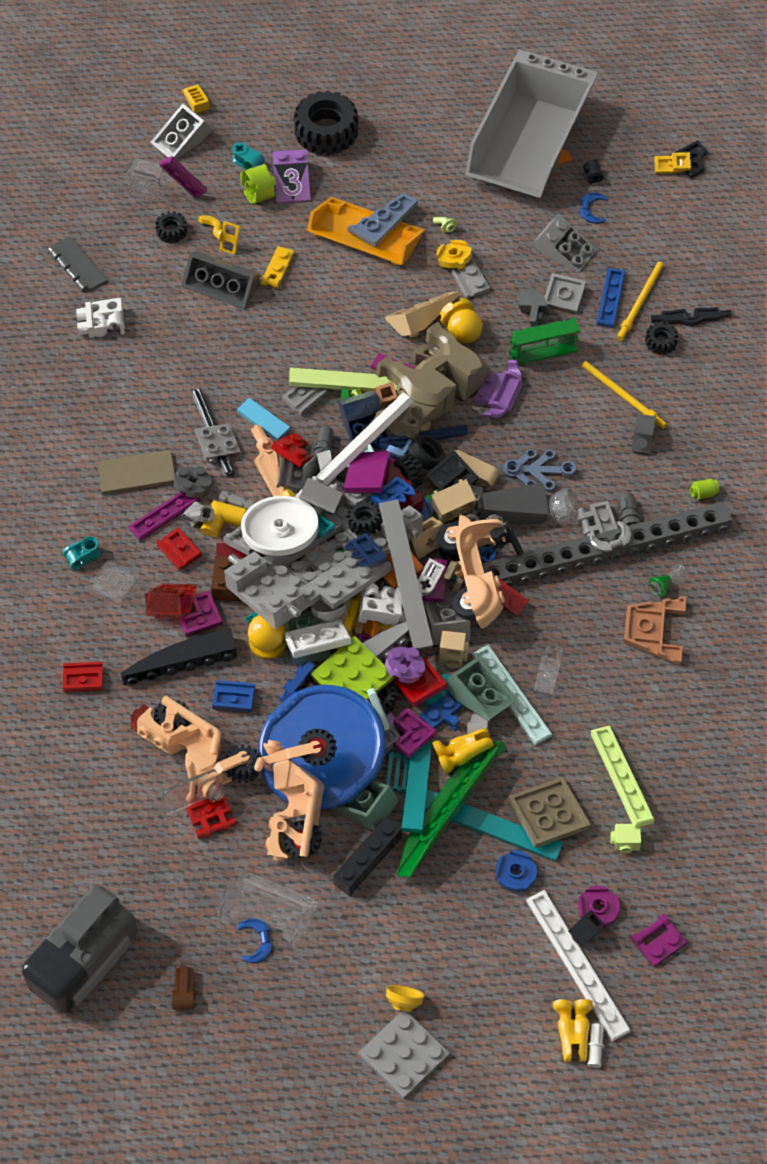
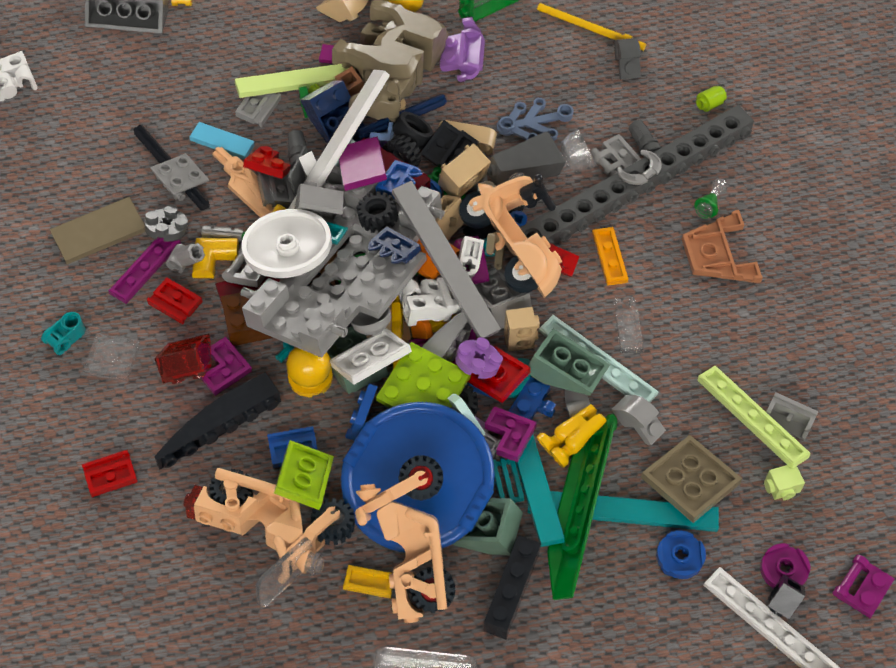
camera: 20 degrees left, 0 degrees up
(205, 811) = (307, 588): red plate -> none
(231, 720) = (304, 475): none -> lime tile
(254, 819) = (367, 581): none -> yellow tile
(526, 750) = (641, 415): none -> light grey brick
(558, 607) = (610, 256): none -> light orange tile
(656, 785) = (792, 415): none -> light grey hinge

